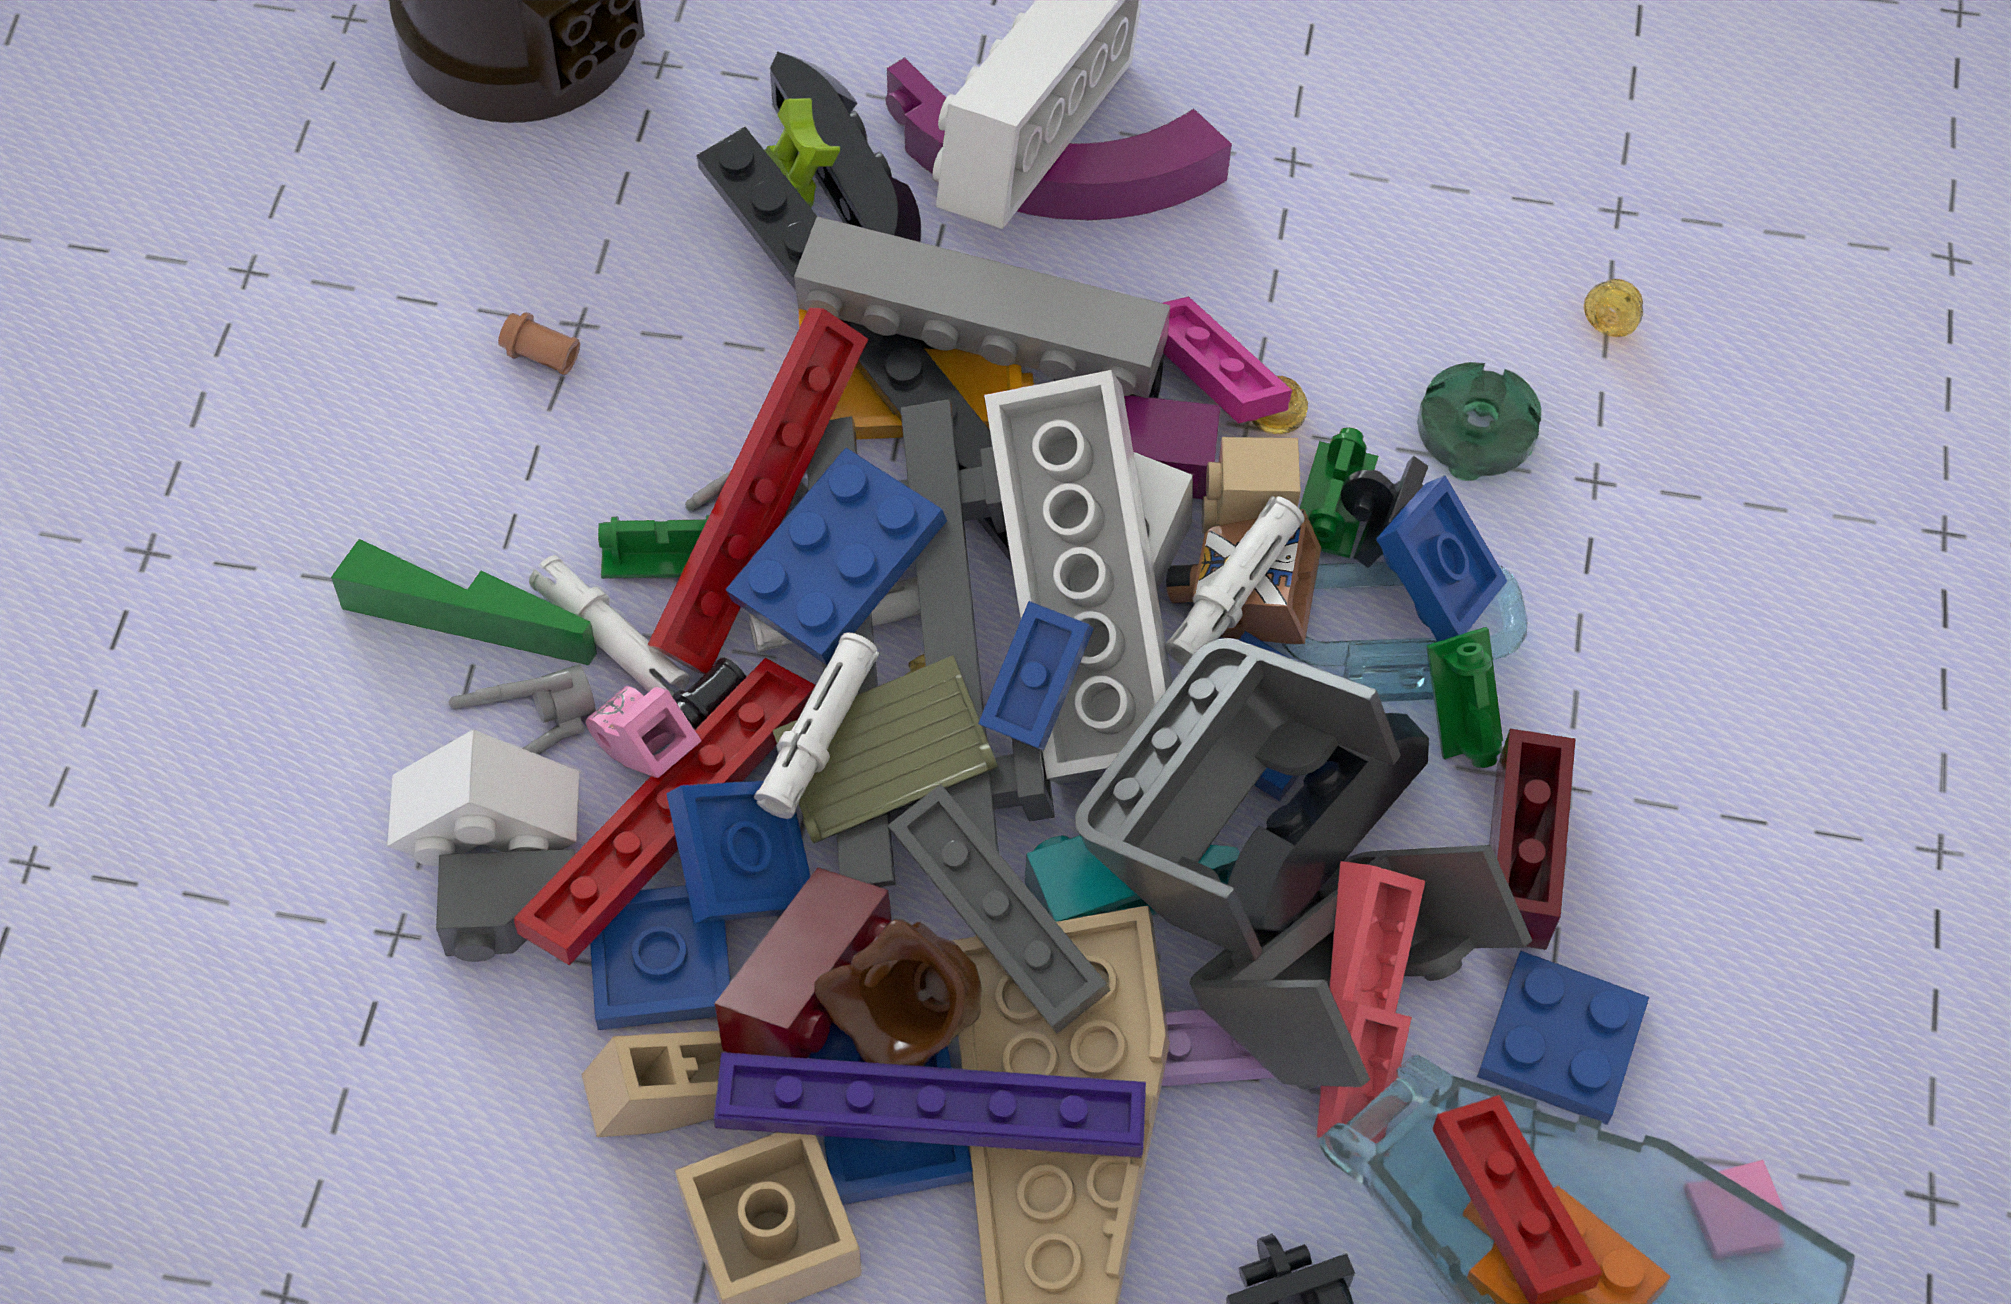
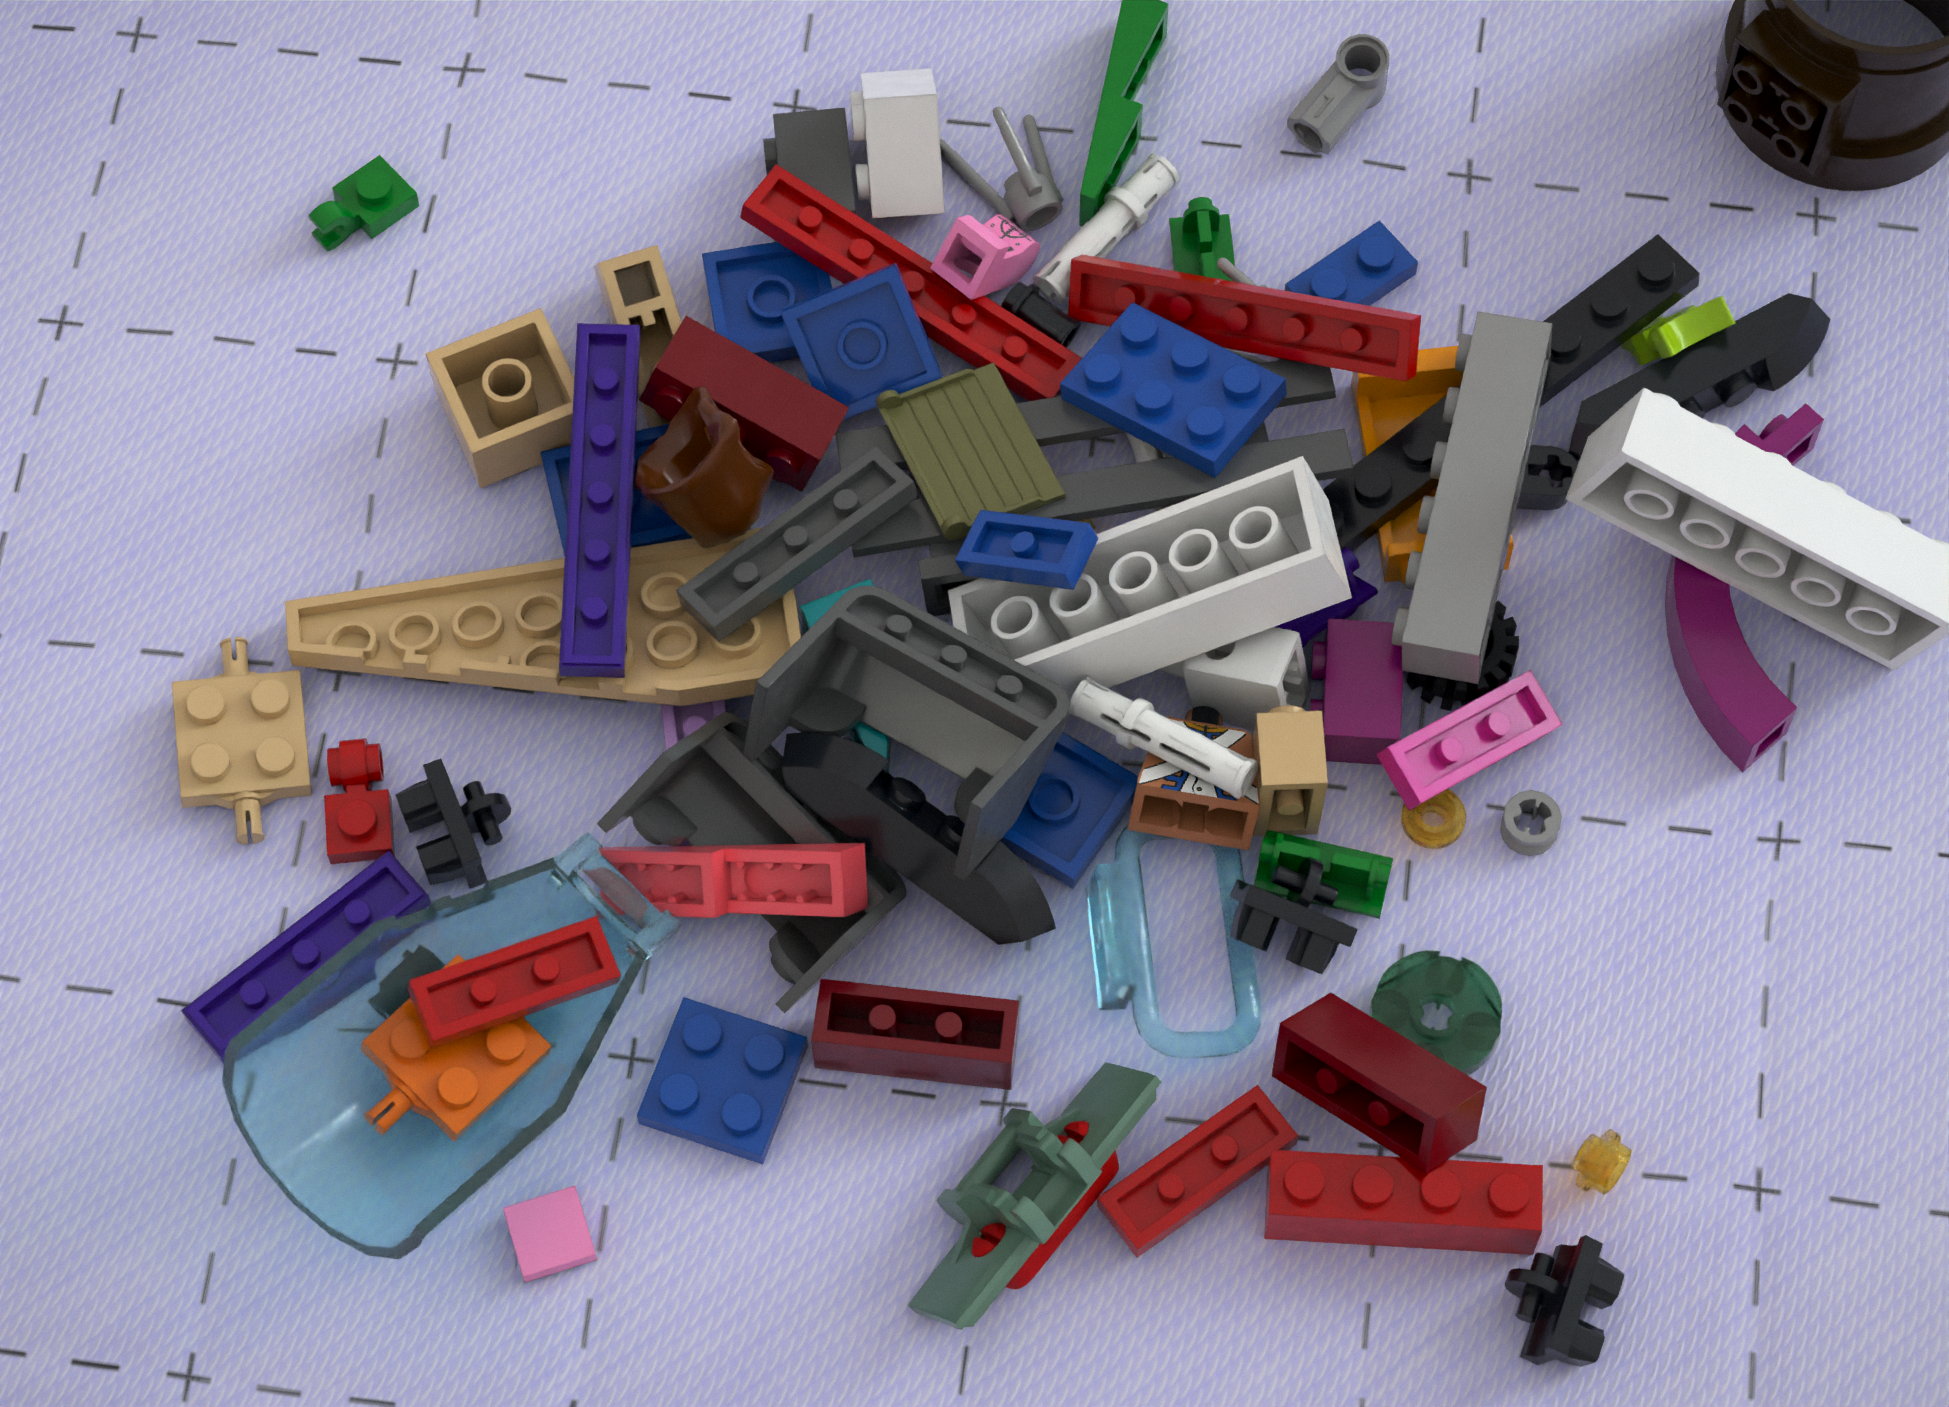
camera: 90 degrees right, 5 degrees up
(482, 408) = (1340, 95): none -> light grey piece
(539, 343) = (1434, 124): nougat pin -> none
(688, 426) = (1359, 269): none -> blue plate
(806, 746) = (962, 378): white pin -> none
(1274, 345) = (1538, 804): none -> light grey bush
(1441, 560) = (1214, 941): blue plate -> none
(1466, 697) = (1071, 980): green hinge -> none
(1570, 446) = (1379, 1082): none -> dark red brick
(1641, 618) = (1196, 1171): none -> red plate
(1667, 455) = (1402, 1206): none -> red brick
(1697, 732) = (1014, 1235): none -> sand green piece
(1746, 345) = (1554, 1297): none -> black hips

